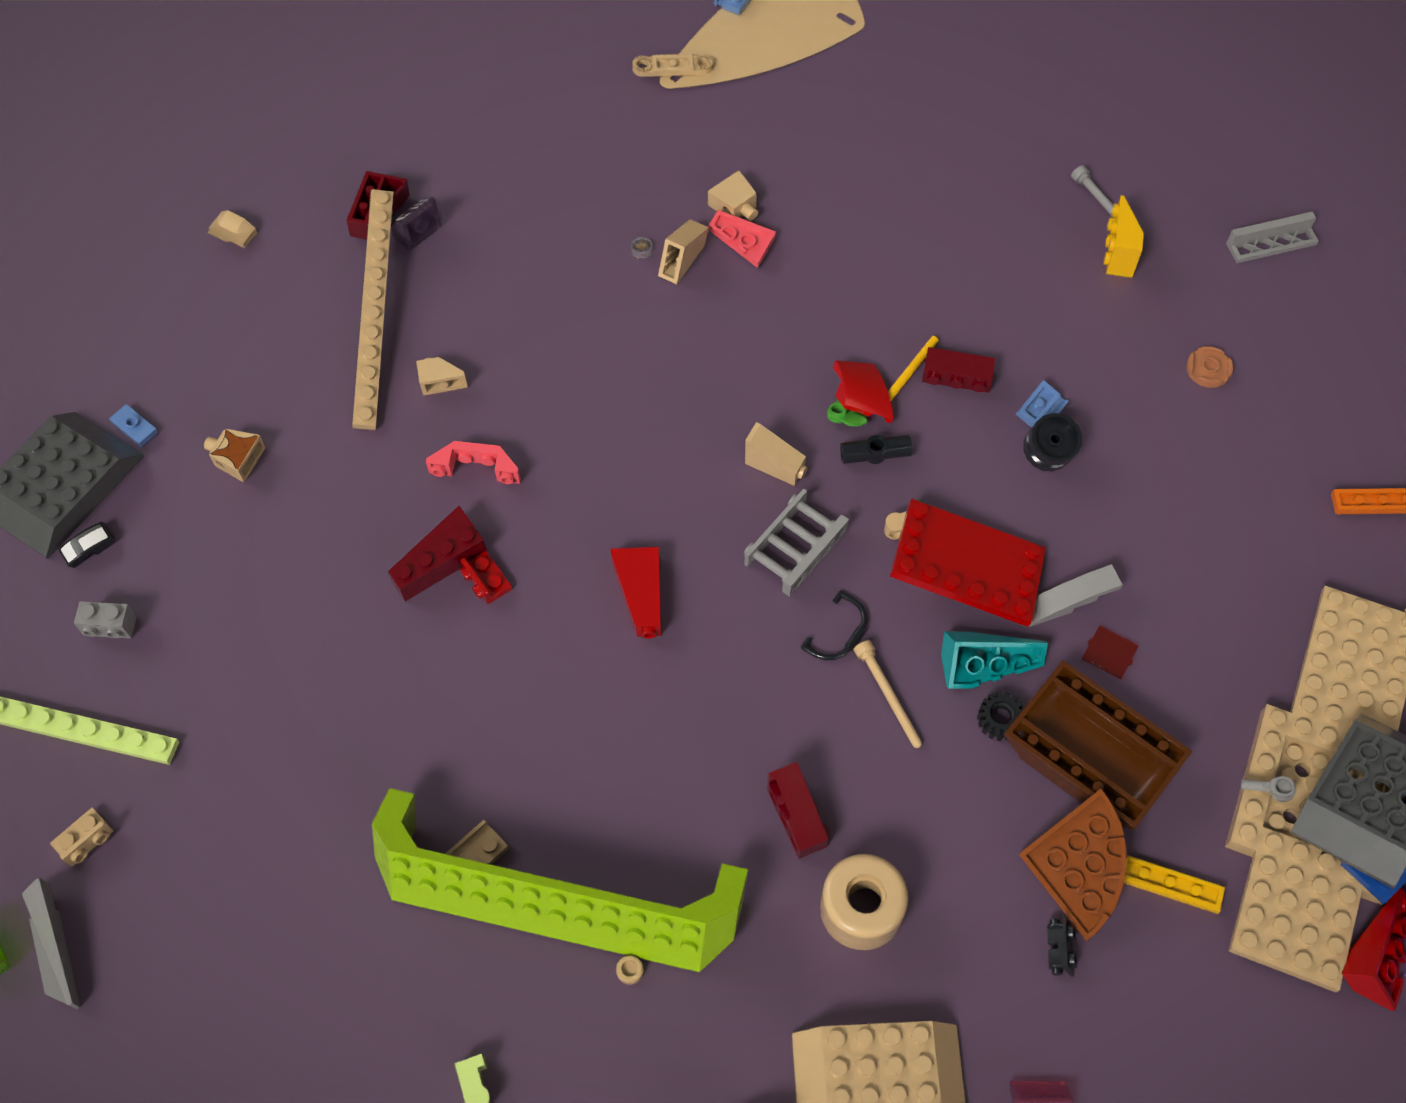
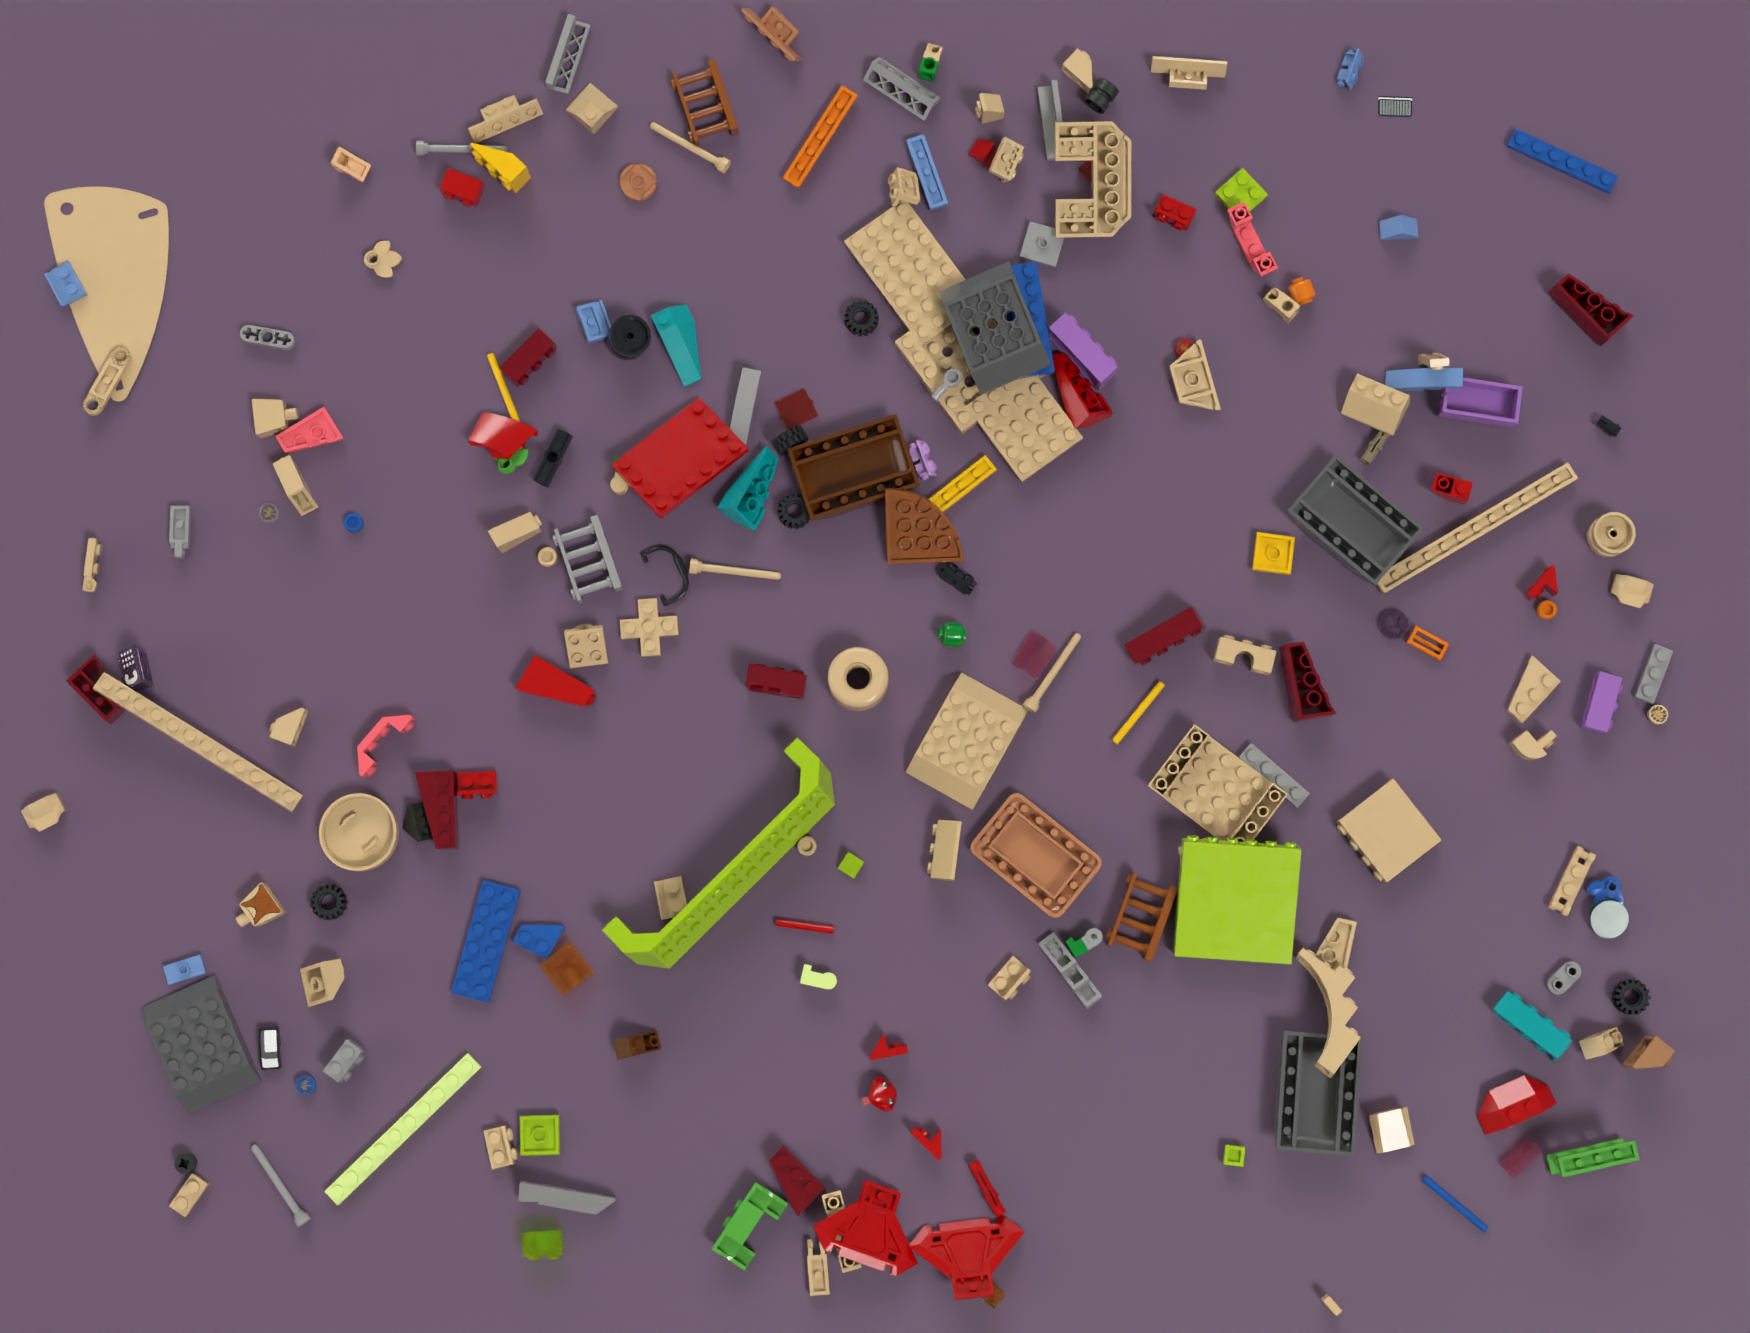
camera: 60 degrees left, 20 degrees up
(62, 600) = (305, 1085): none -> blue tile
(115, 872) = (539, 1135): none -> lime plate
(186, 550) = (322, 981): none -> tan slope
(269, 500) = (320, 893): none -> black tyre
(278, 917) = (637, 1044): none -> reddish brown slope
(315, 685) = (485, 941): none -> blue plate
(329, 786) = (566, 968): none -> clear orange plate
(349, 738) = (539, 938): none -> blue wing
(365, 495) = (359, 832): none -> tan brick
(406, 541) = (416, 822): none -> pearl dark grey slope
(494, 140) = (91, 565): none -> tan hinge
(531, 1028) = (804, 926): none -> red bar
(574, 188) = (180, 529): none -> light grey hinge
(638, 1037) = (851, 865): none -> lime slope
(682, 319) = (353, 522): none -> blue tile
(702, 593) = (586, 645): none -> tan plate
(766, 646) = (649, 627): none -> tan plate
(771, 505) = (547, 557): none -> tan tile
(806, 166) = (253, 339): none -> light grey beam
(952, 203) = (385, 259): none -> tan plate
(992, 982) = (952, 634): none -> green head
(1017, 126) = (350, 164): none -> light nougat slope
(1073, 225) = (462, 188): none -> red brick
(1075, 655) = (788, 439): none -> black tyre
(1092, 489) = (678, 335): none -> teal wedge
(1160, 828) = (921, 452): none -> lavender hinge
(1169, 222) = (504, 116): none -> tan bracket
(1242, 288) = (591, 108): none -> tan slope
(1270, 647) = (861, 307): none -> black tyre
(1295, 427) = (721, 164): none -> tan piece
(1350, 394) = (717, 90): none -> dark orange fence

